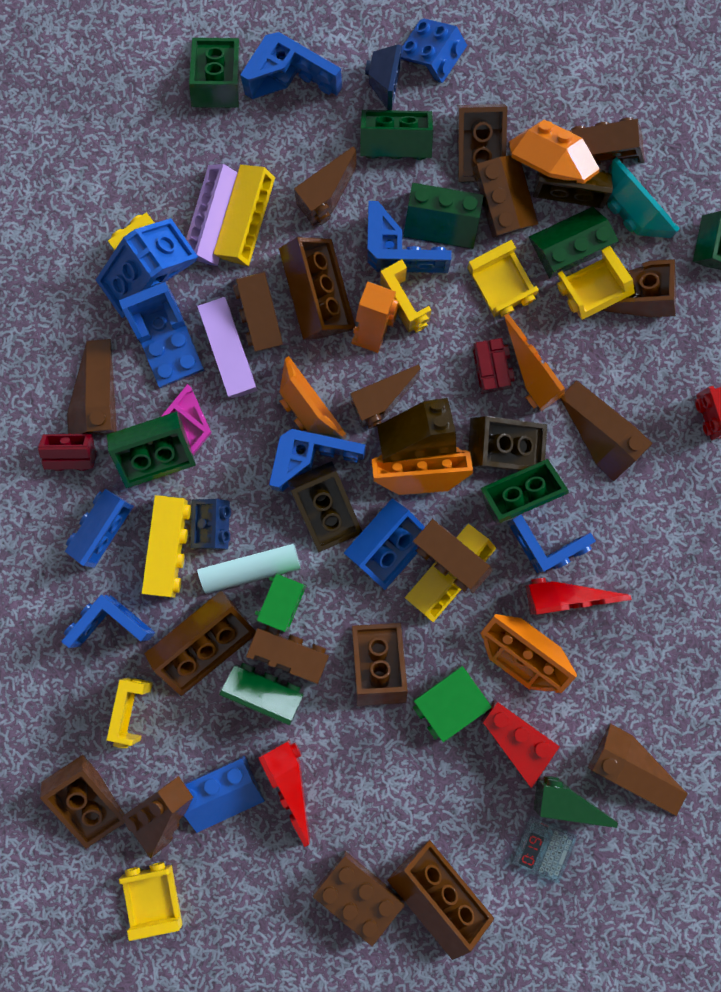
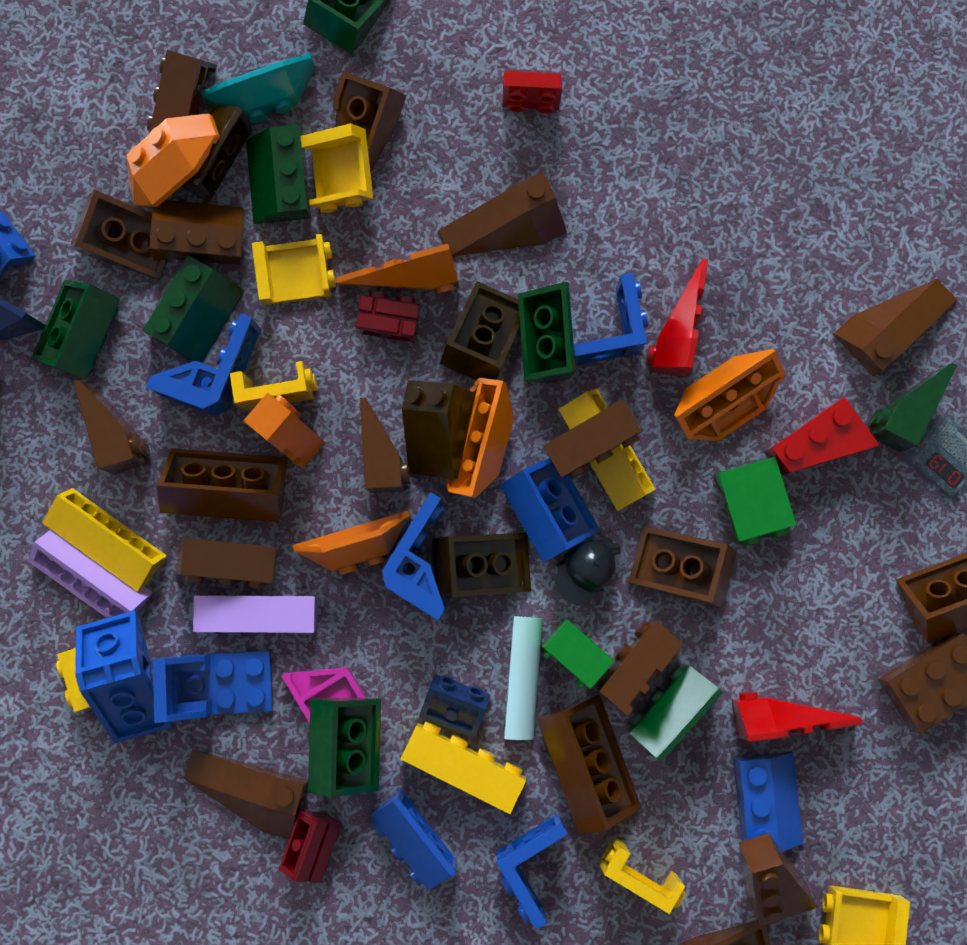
camera: 75 degrees left, 0 degrees up
(349, 589) = (586, 570): none -> black hair

